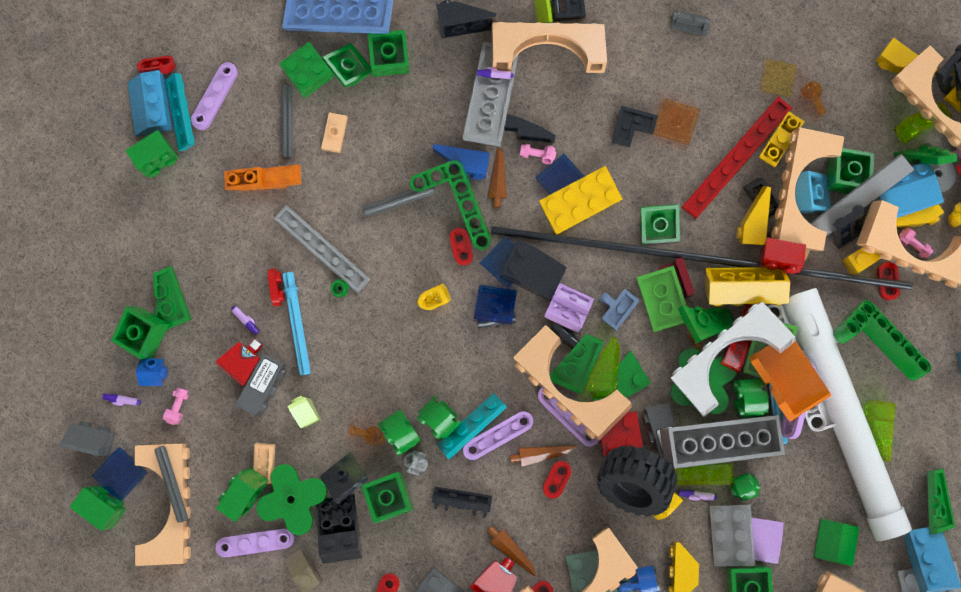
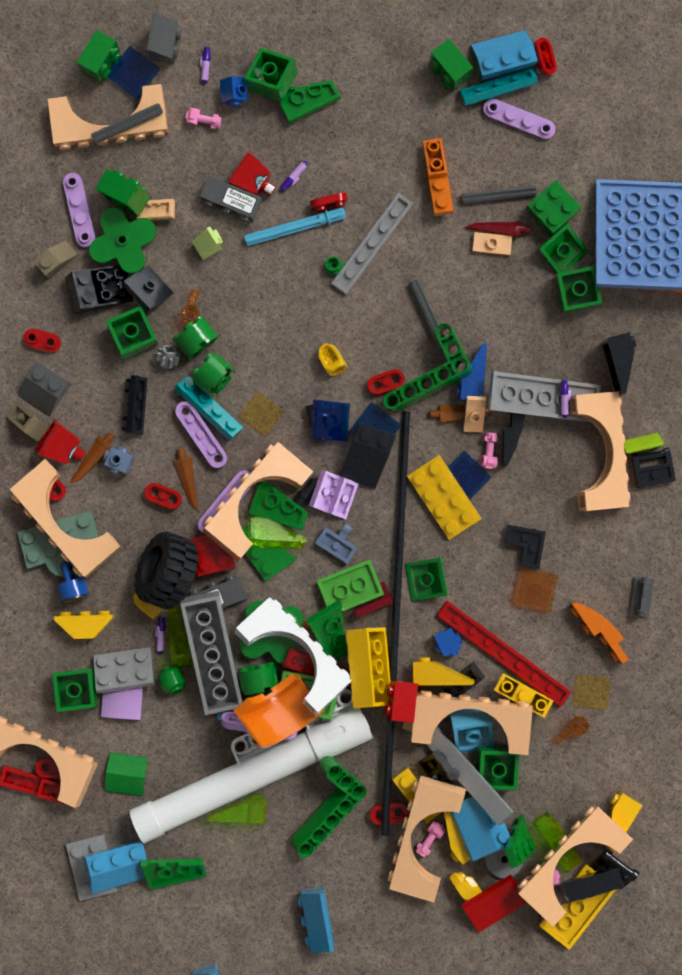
camera: 85 degrees right, 5 degrees up
(321, 114) = (504, 228): none -> dark red bar
(481, 373) = (261, 413): none -> clear yellow piece
(501, 162) = (474, 414): none -> light nougat plate
(520, 515) = (125, 460): none -> sand blue brick
(717, 64) = (596, 623): none -> orange slope
(724, 209) = (447, 643): none -> blue brick

